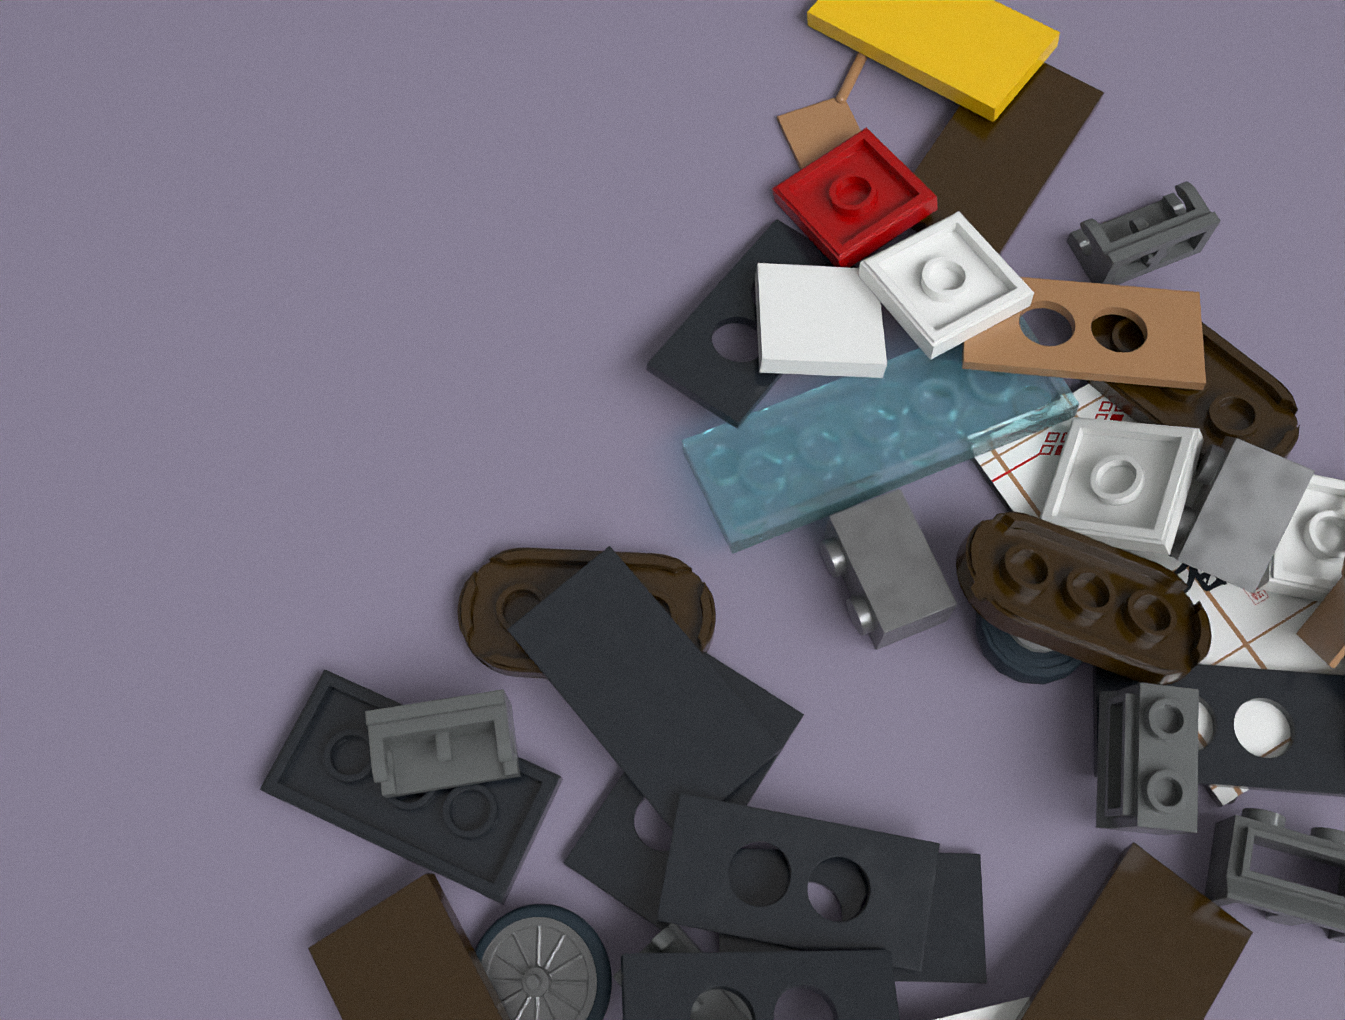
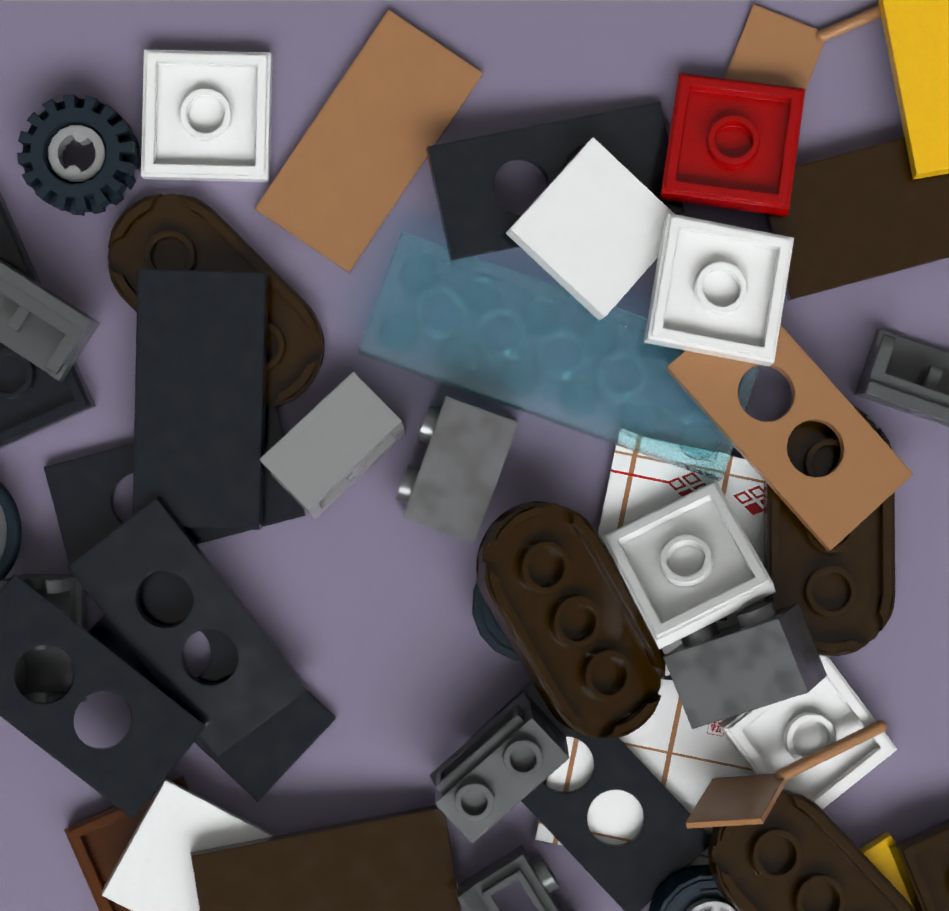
camera: 40 degrees right, 20 degrees up
(401, 620) = (71, 187): none -> black bush
(461, 490) = (206, 115): none -> white tile
(598, 414) = (369, 141): none -> medium nougat piece
(778, 635) = (333, 445): none -> light grey hinge

